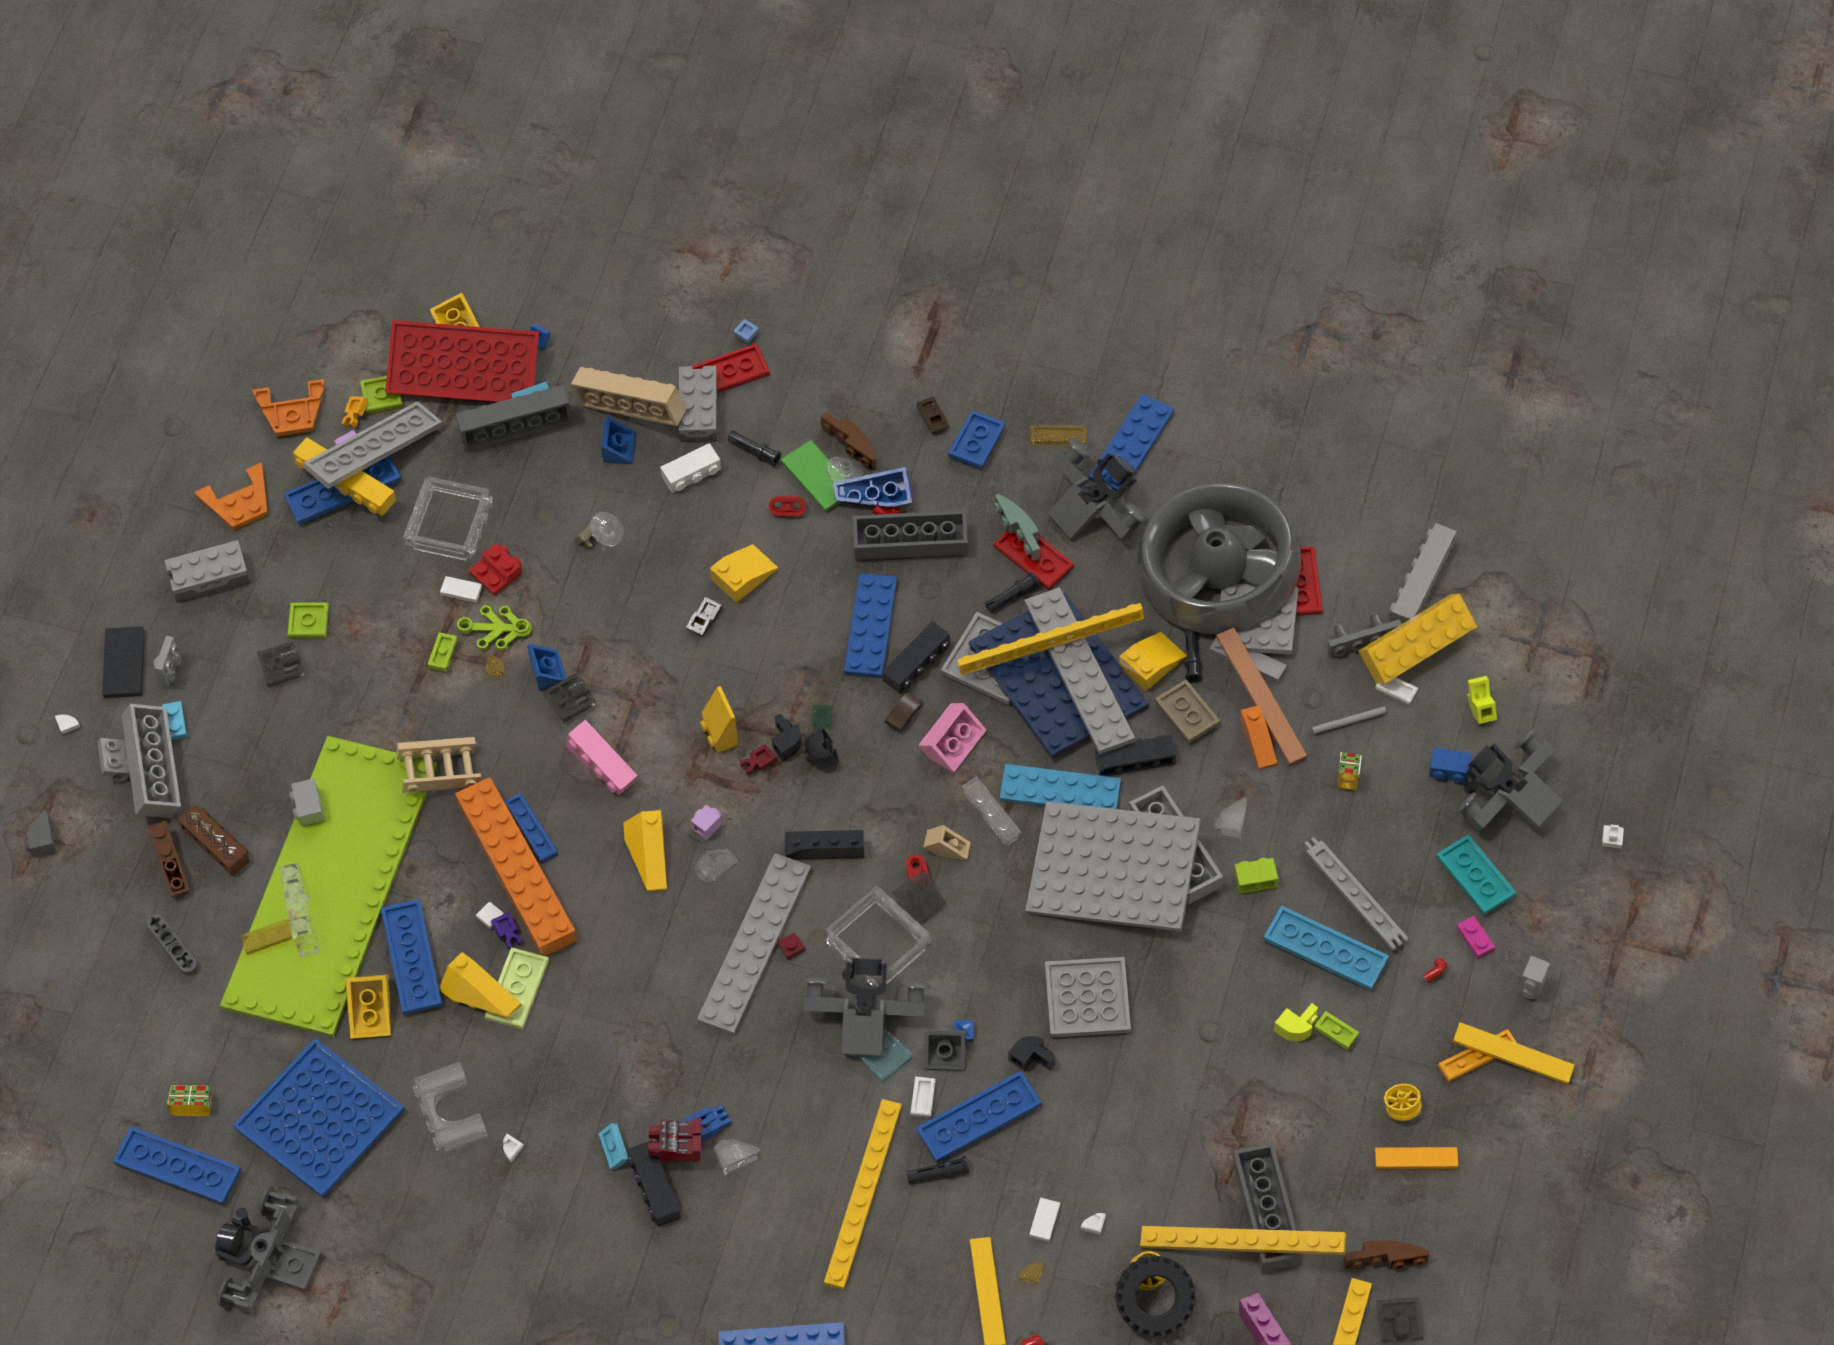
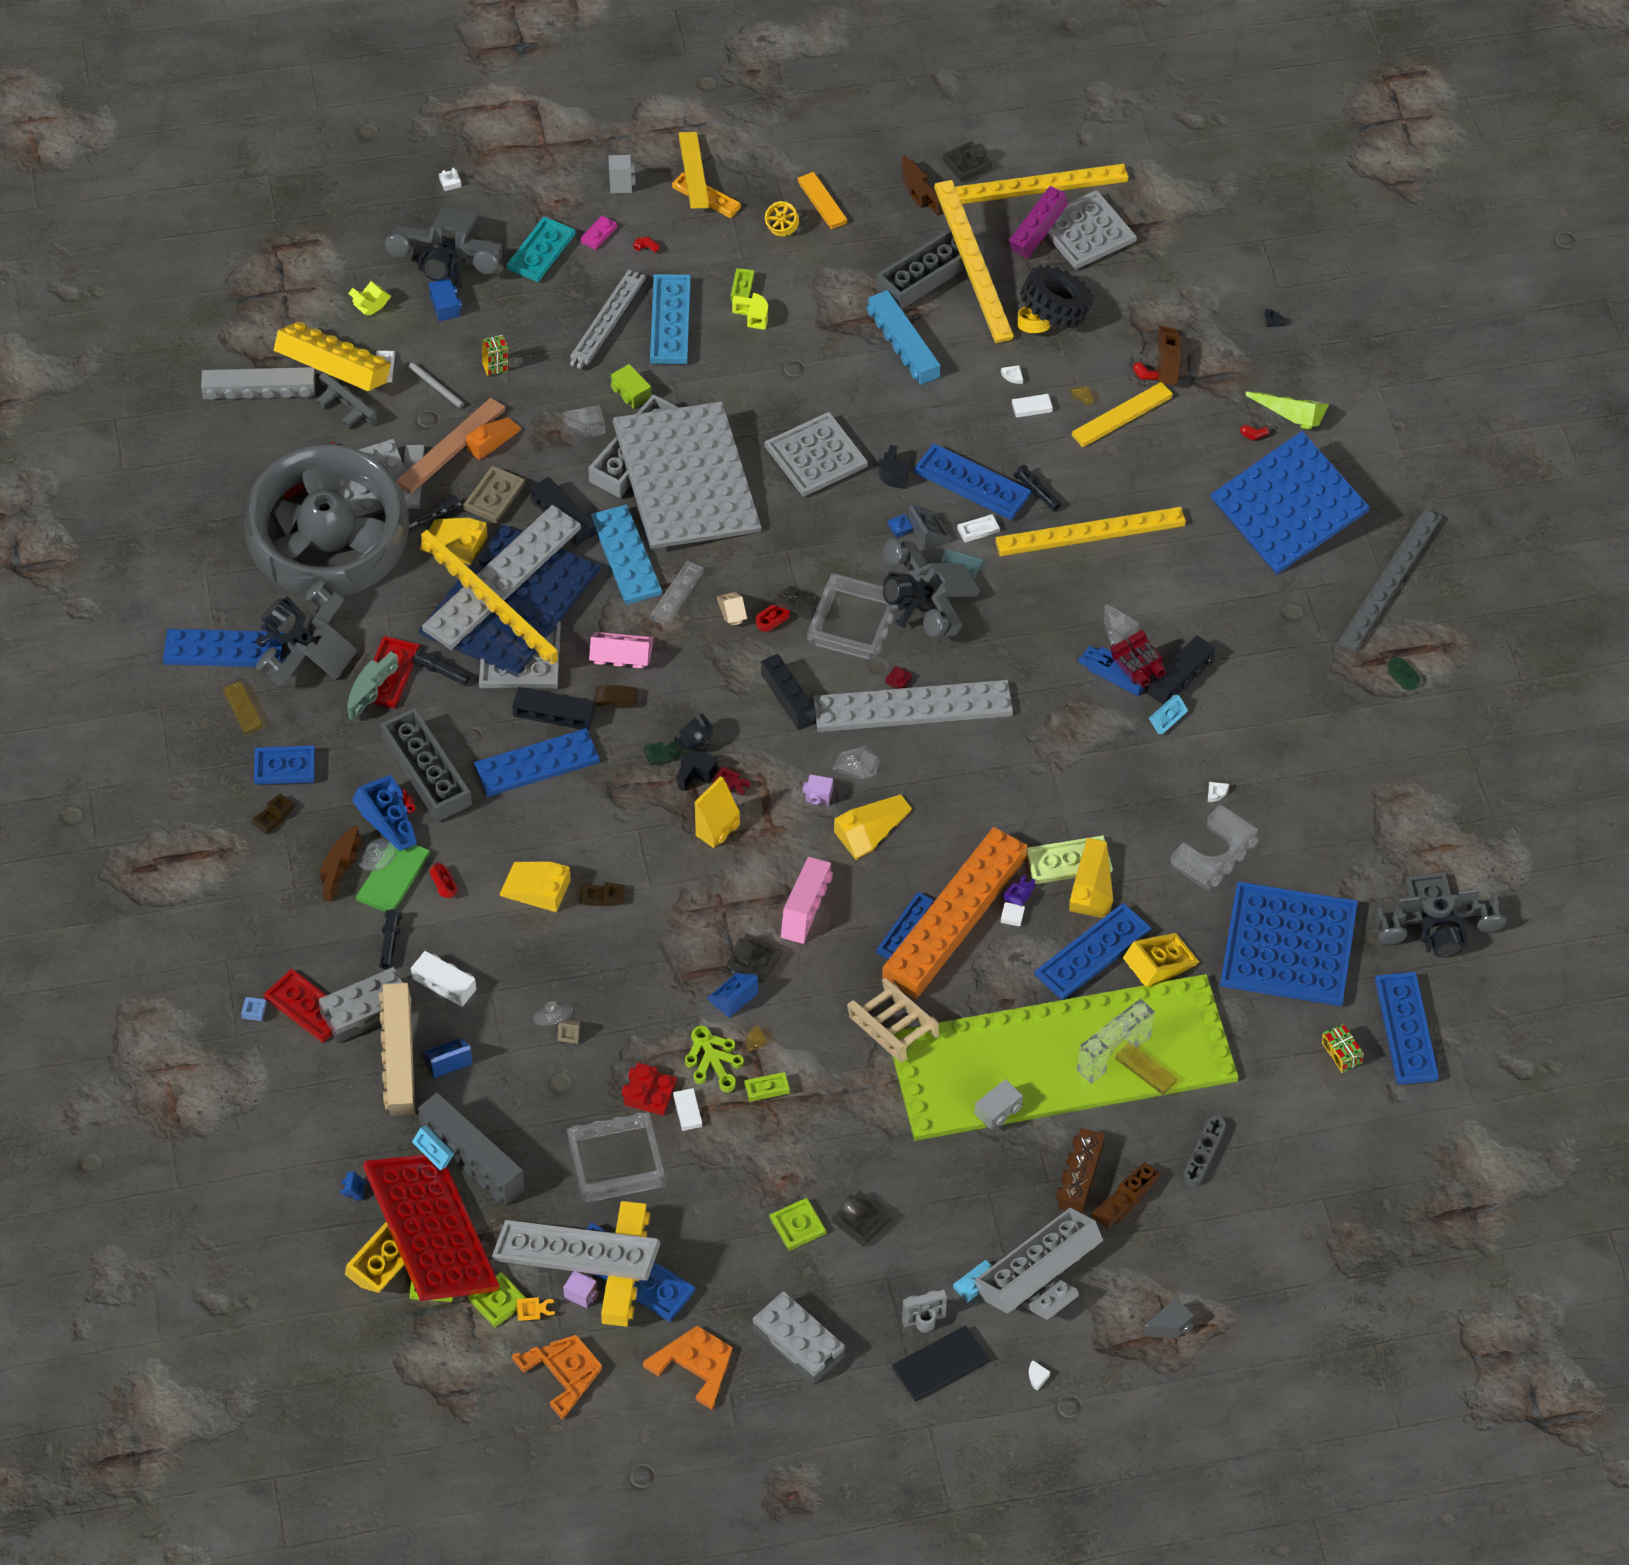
camera: 120 degrees left, 5 degrees down
(1188, 1141) = (903, 337): none -> dark azure brick

